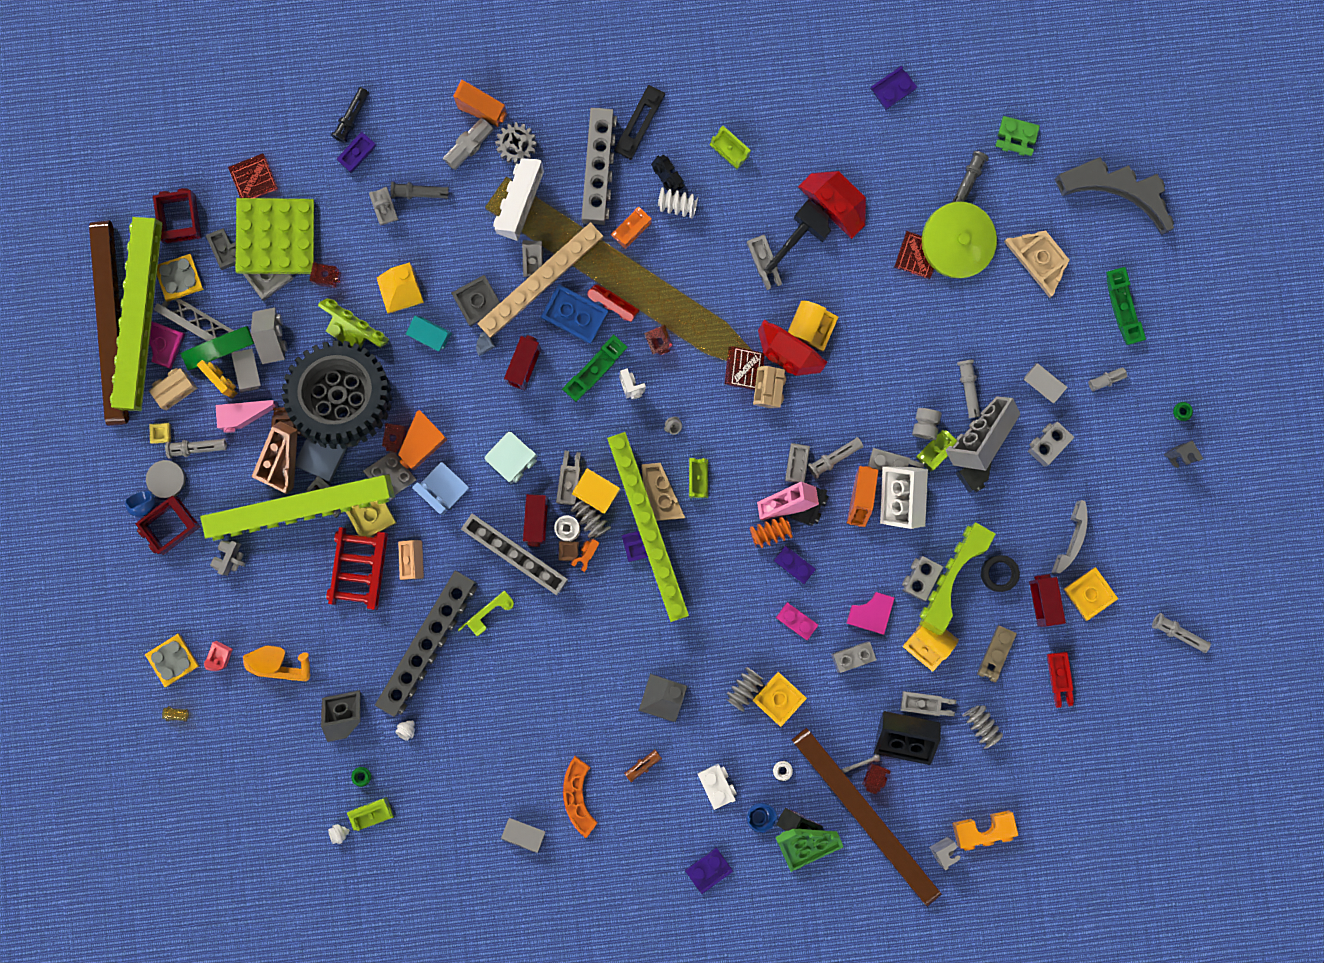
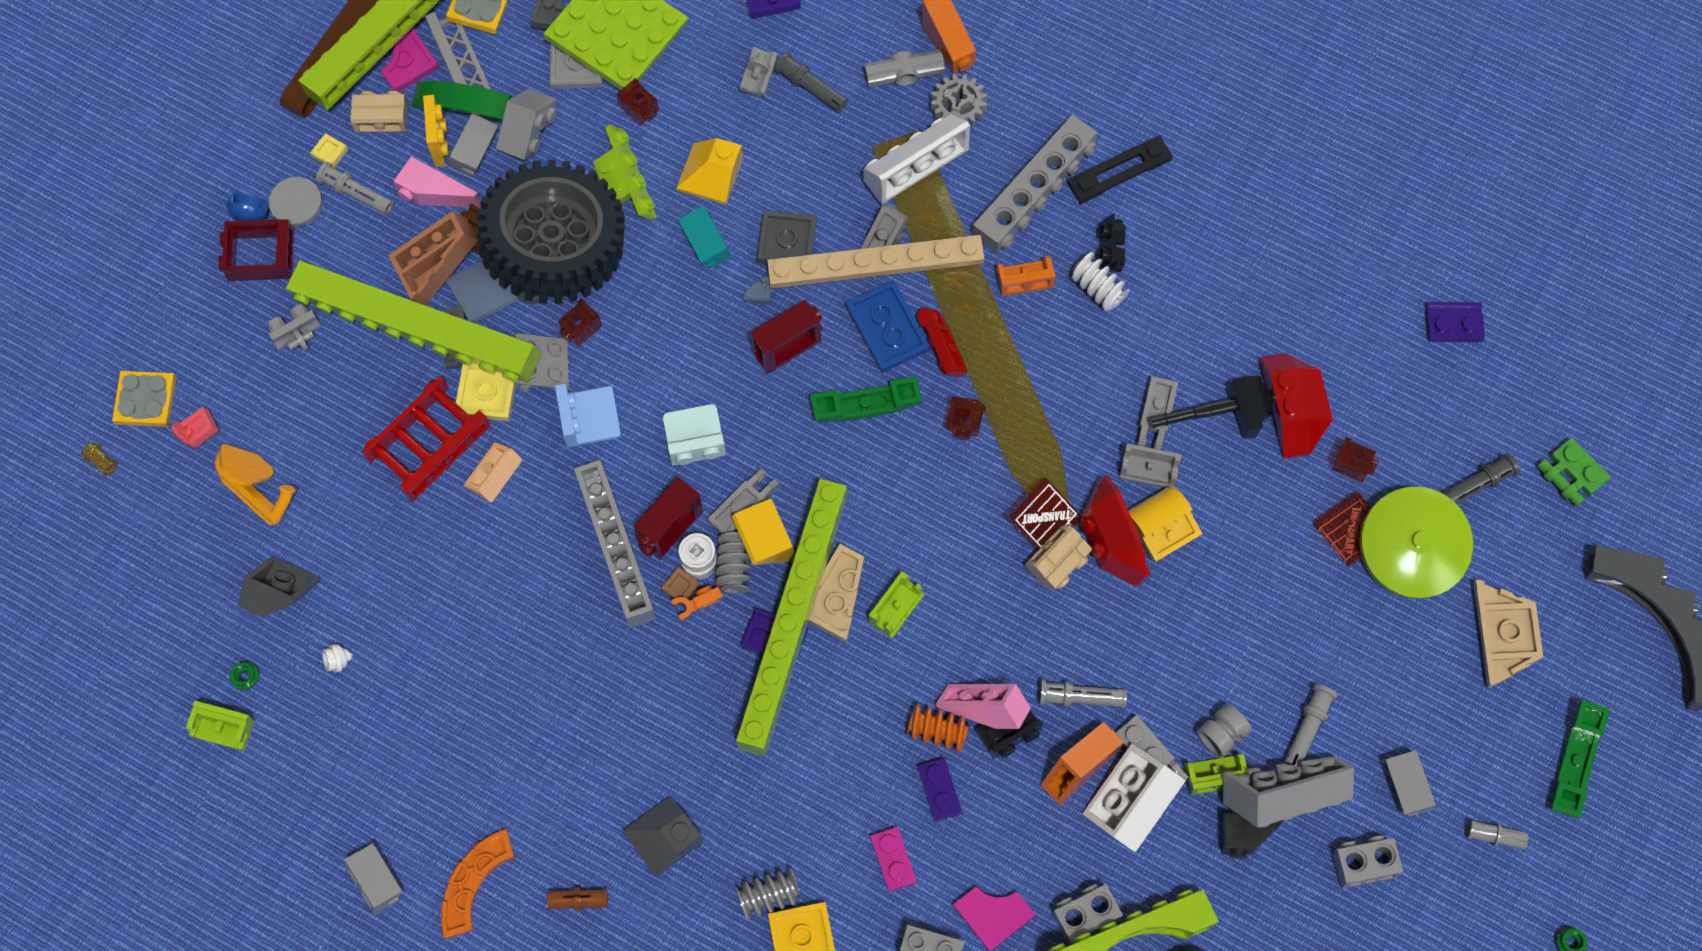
camera: 40 degrees right, 15 degrees down
(338, 834) = (166, 722): white plate -> none
(386, 700) = (420, 572): dark grey brick -> none
(420, 442) = (604, 347): orange slope -> none
(476, 624) = (510, 591): lime piece -> none
(628, 383) = (893, 451): white bracket -> none
(673, 425) = (914, 531): light grey plate -> none
(730, 147) = (1207, 262): lime hinge -> none
(782, 297) = (1149, 466): none -> light grey hinge
(797, 463) = (1031, 668): light grey plate -> none
(889, 218) = (1349, 466): none -> clear red brick

